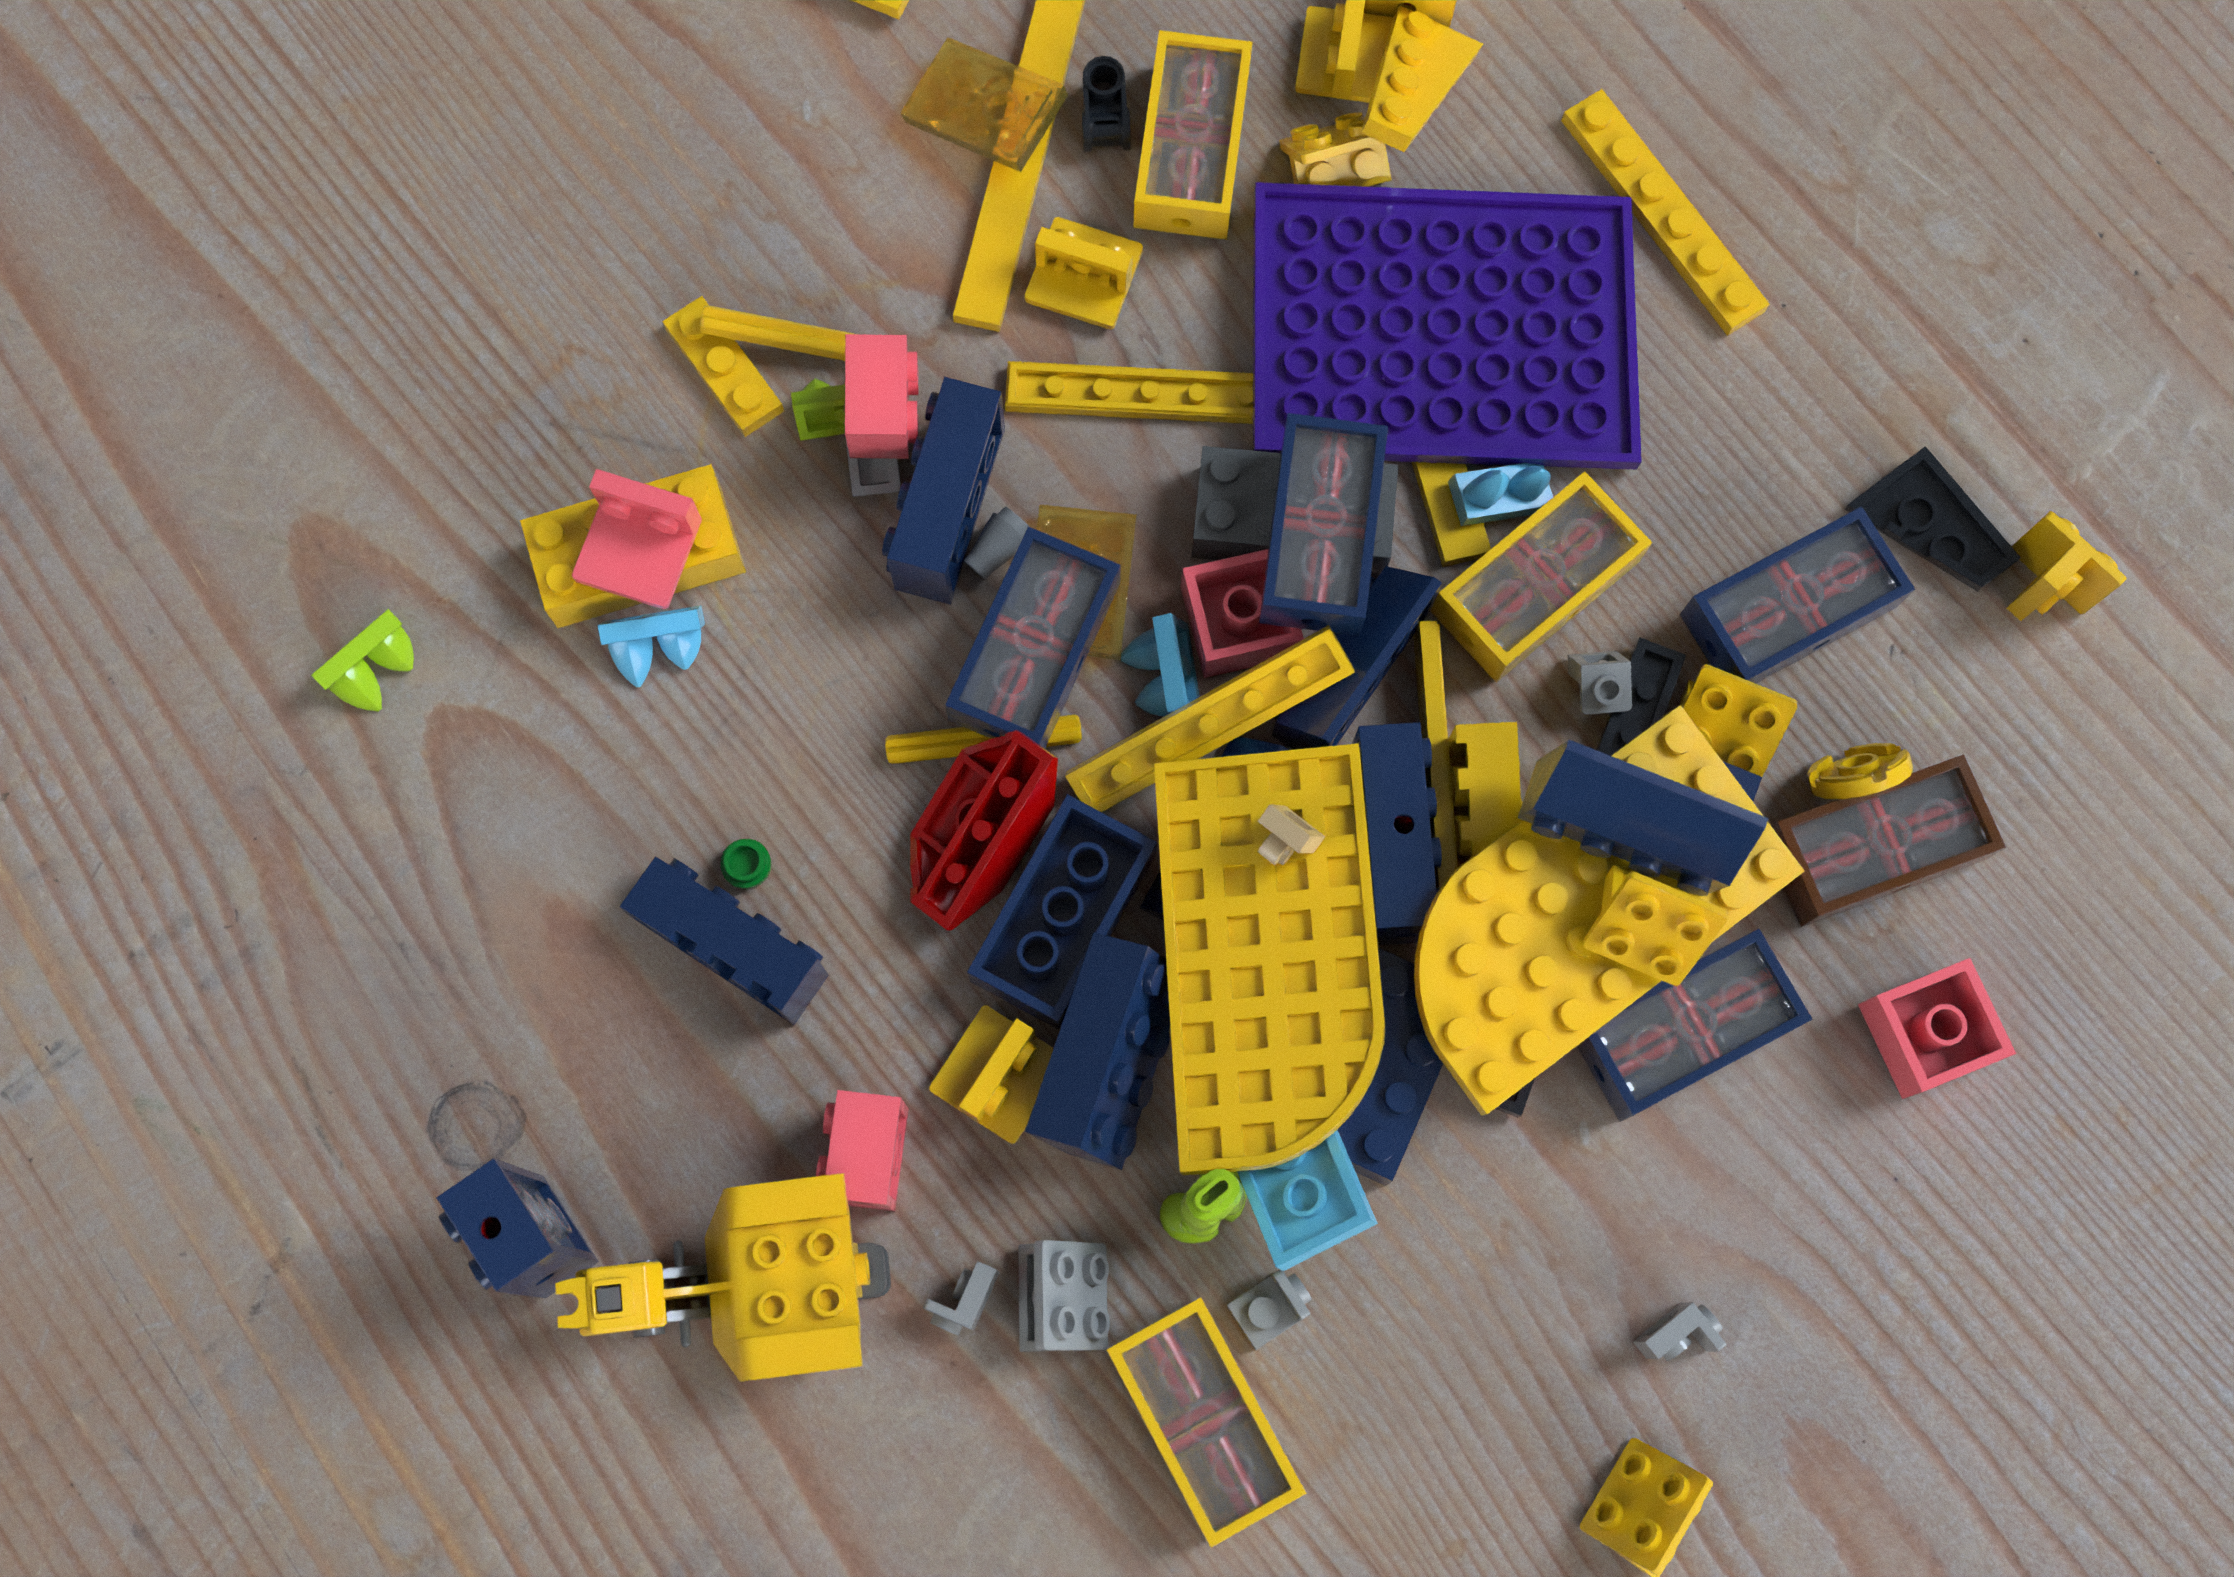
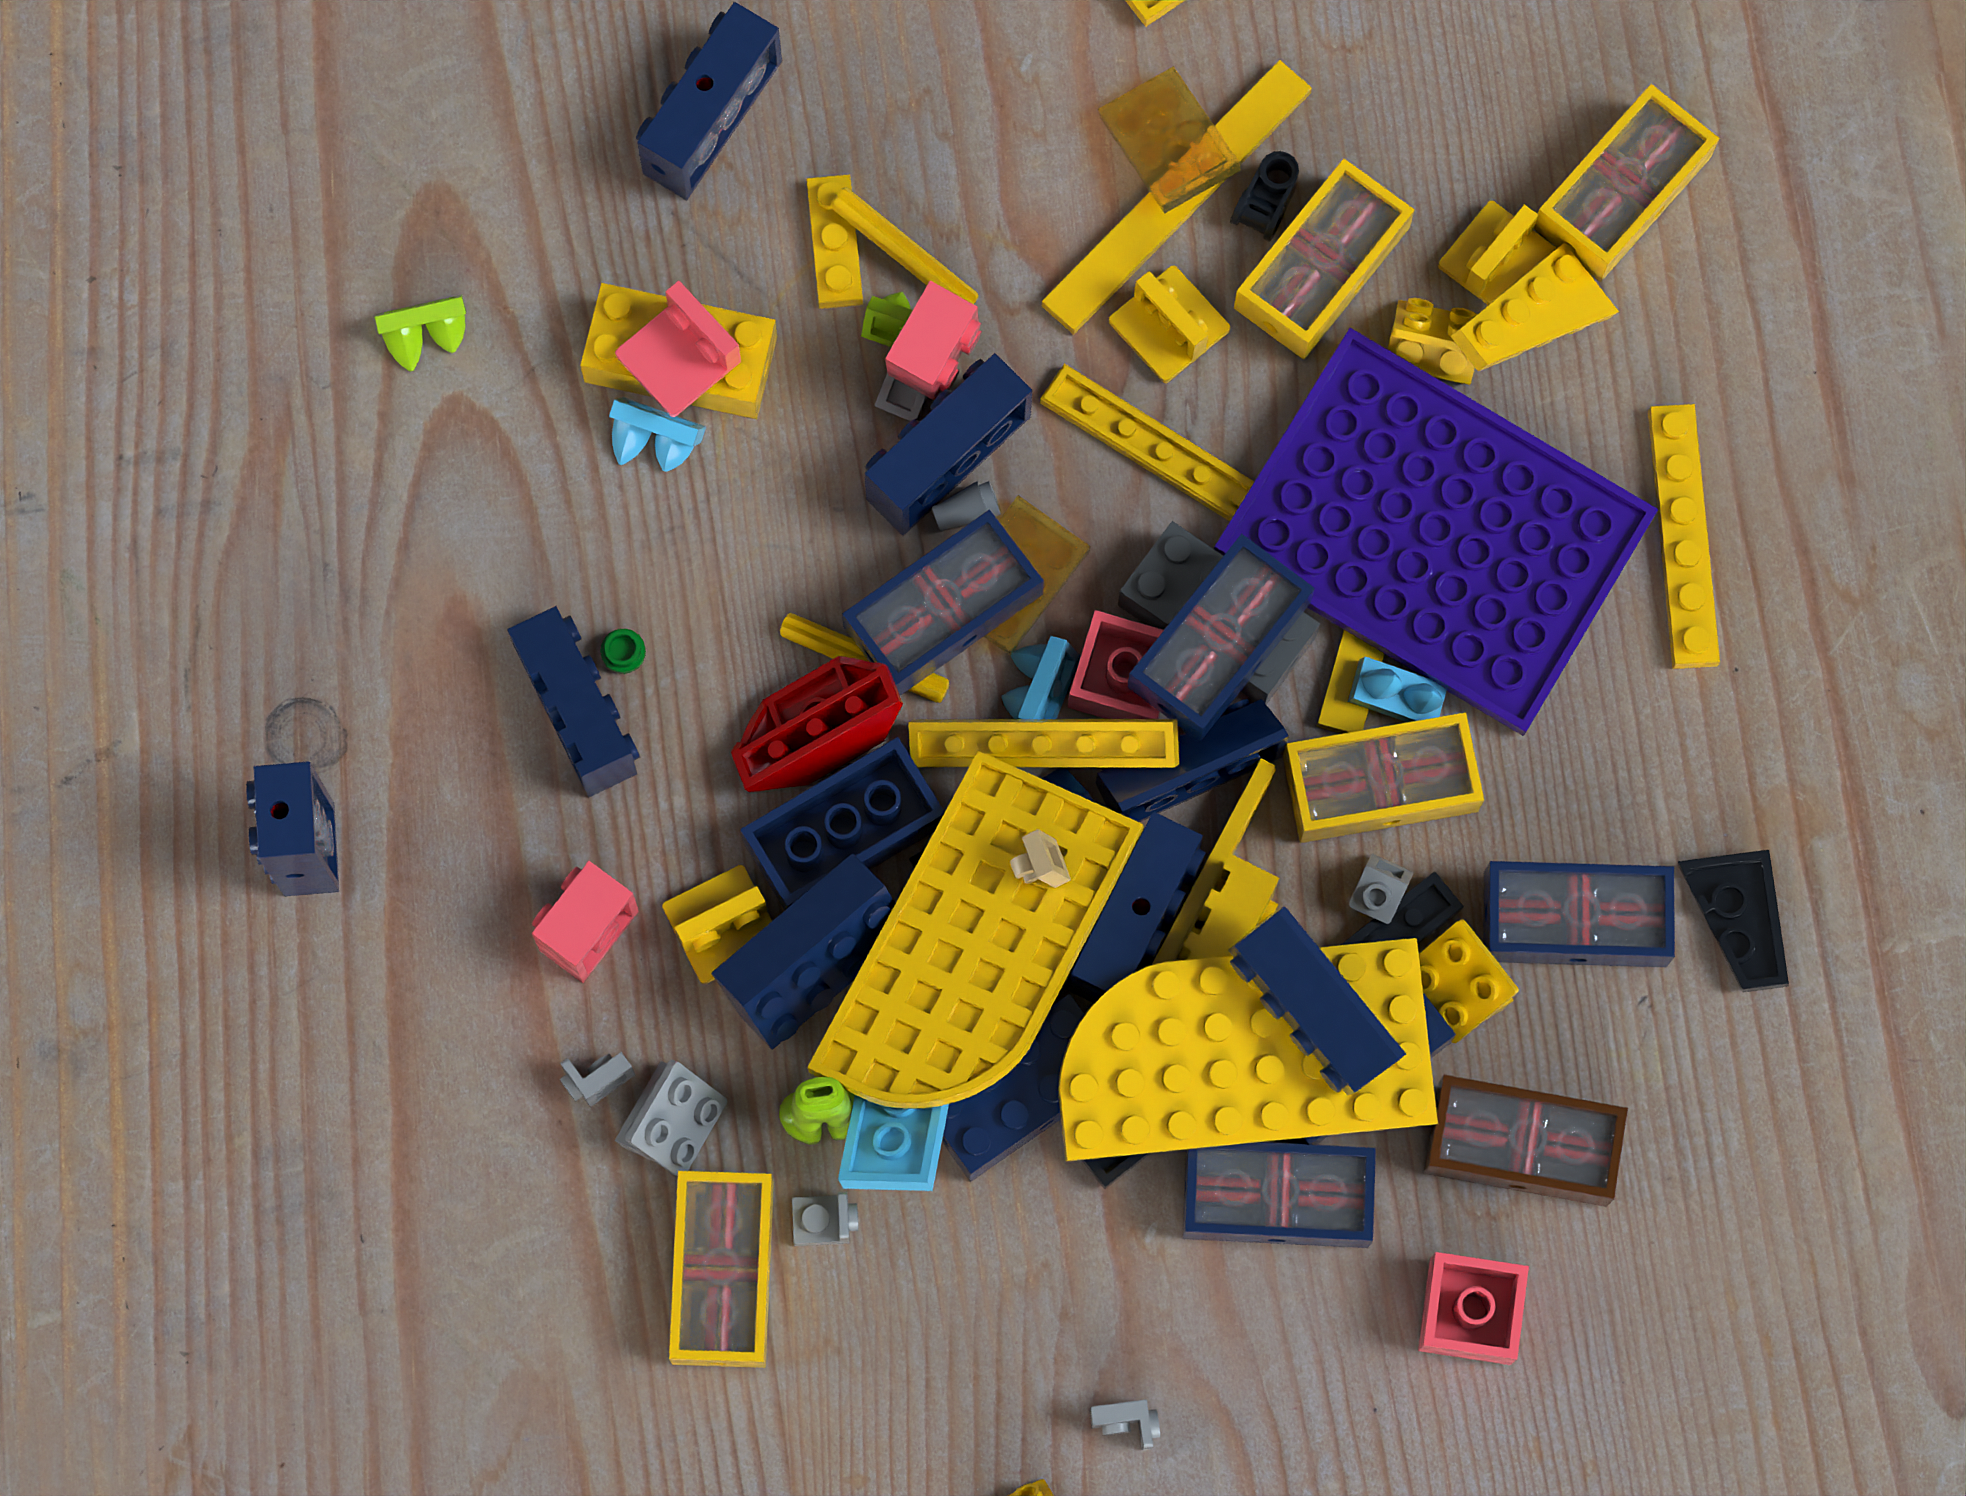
camera: 30 degrees right, 0 degrees up
(525, 294) = (709, 99): none -> dark blue brick
(775, 1286) = (462, 979): yellow piece -> none
(1652, 926) = (1278, 1089): yellow bracket -> none
(1861, 772) = (1540, 1078): yellow tile -> none
(2064, 569) = (1811, 1010): yellow bracket -> none

